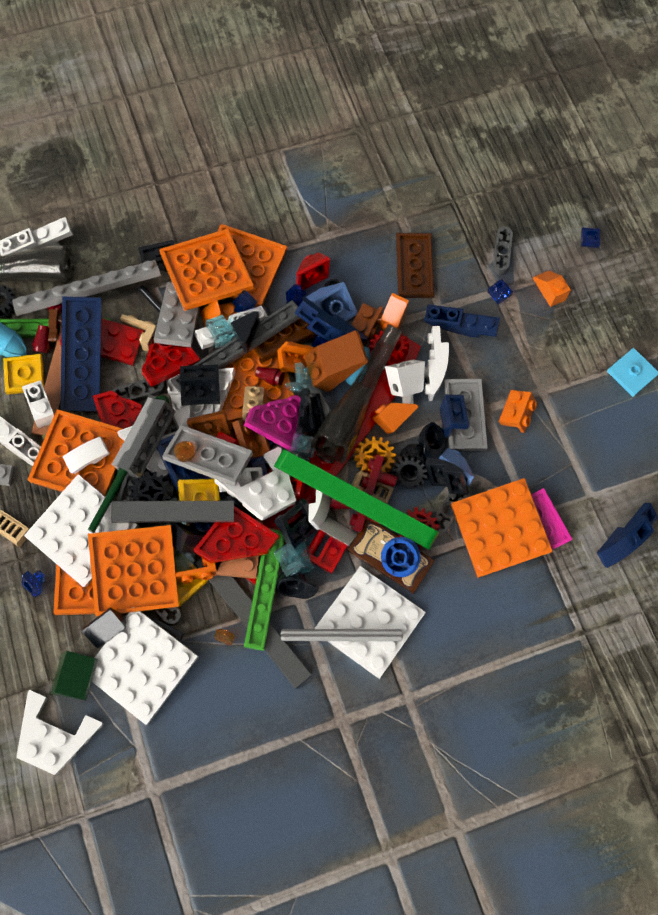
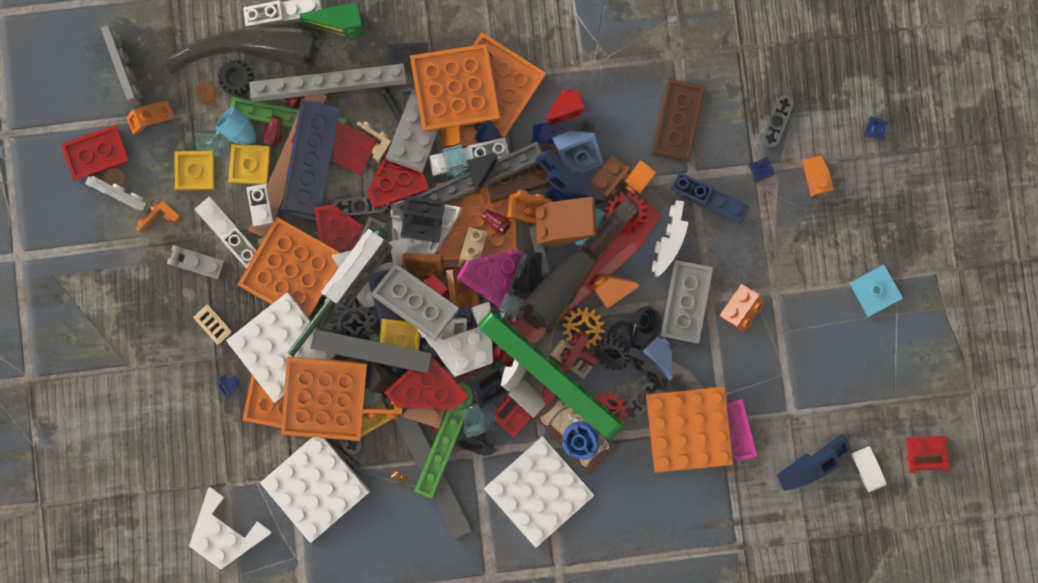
camera: 15 degrees right, 15 degrees up
(55, 321) = (290, 115): reddish brown plate -> none
(73, 675) = (251, 484): dark green slope -> none
(84, 234) = (337, 20): none -> green slope
(85, 454) = (298, 273): white slope -> none
(105, 627) = (288, 446): slope -> none
(184, 451) = (393, 295): clear orange tile -> none
(301, 375) = (527, 230): clear light blue bracket -> none
(341, 635) = (508, 501): light grey axle -> none
(406, 379) = (634, 253): white torso -> none
(453, 413) = (673, 301): dark blue panel -> none

